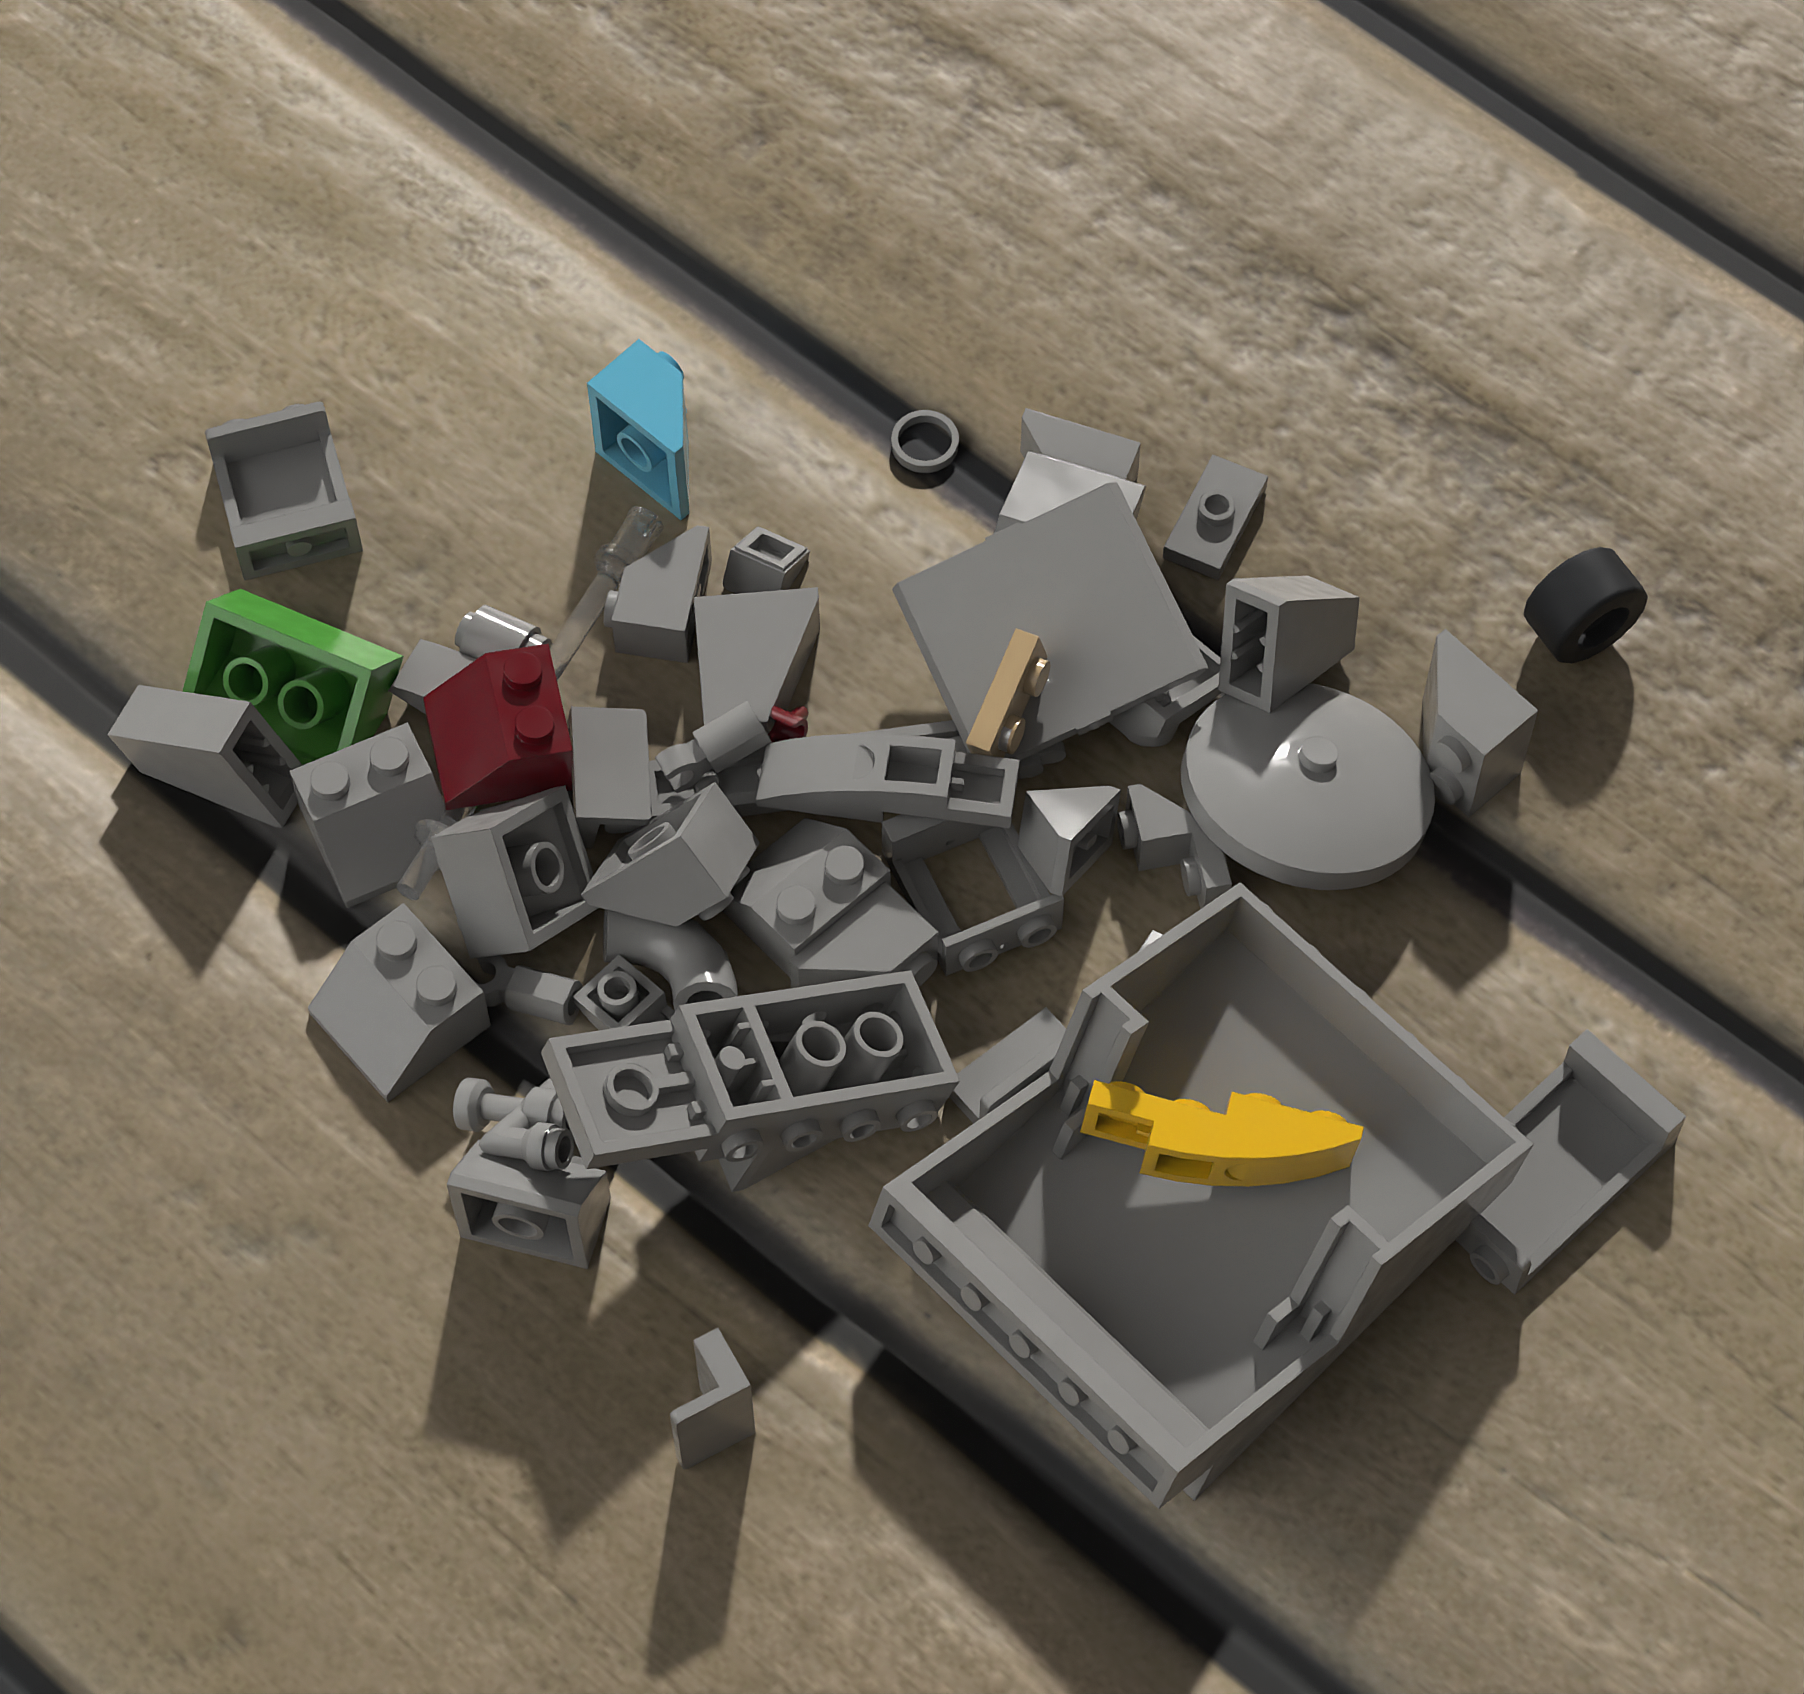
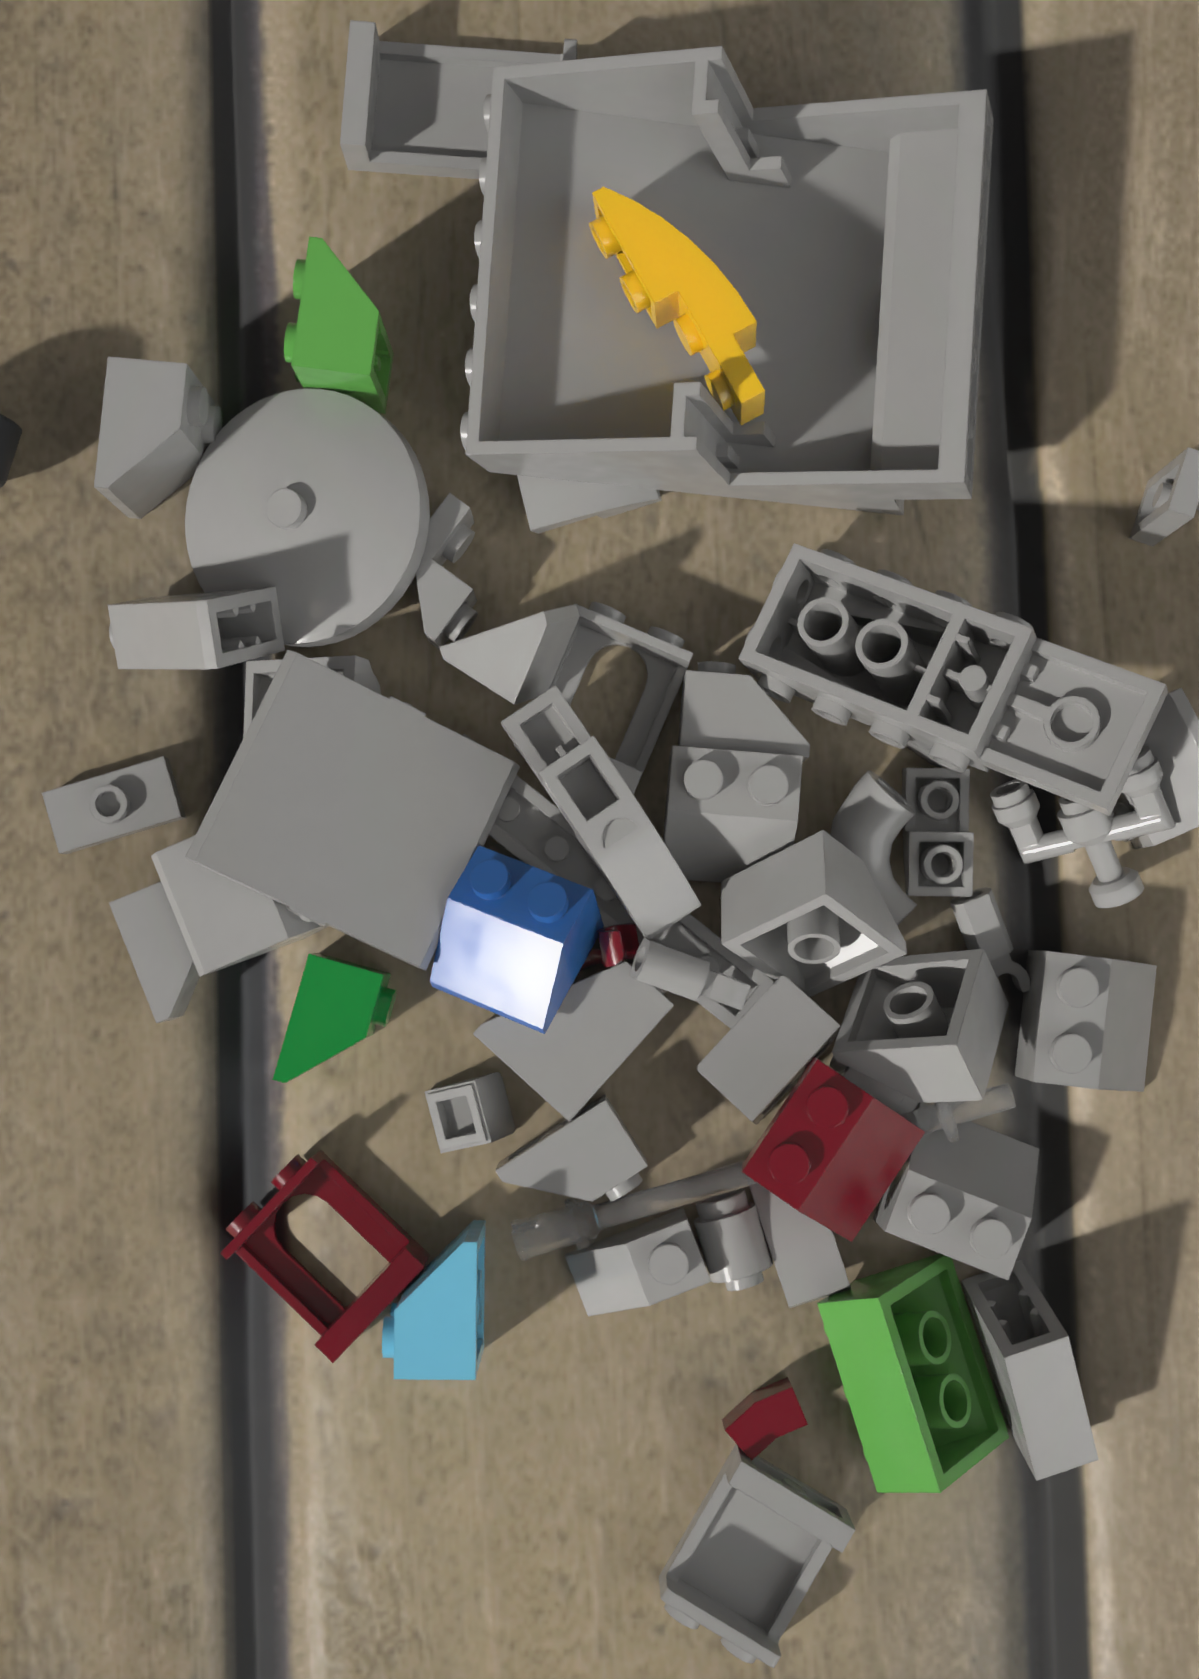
camera: 135 degrees left, 25 degrees up
(361, 574) = (764, 1417): none -> dark red piece
(546, 578) = (639, 1266): none -> light grey slope
(809, 371) = (261, 1250): none -> dark red panel
(857, 664) = (514, 938): none -> slope
(919, 417) = (211, 1096): light grey piece -> none
(922, 521) = (332, 1012): none -> green slope
(1008, 1066) = (726, 531): light grey panel -> none
(1019, 676) = (480, 766): tan piece -> none
(1428, 908) = (338, 331): none -> bright green slope

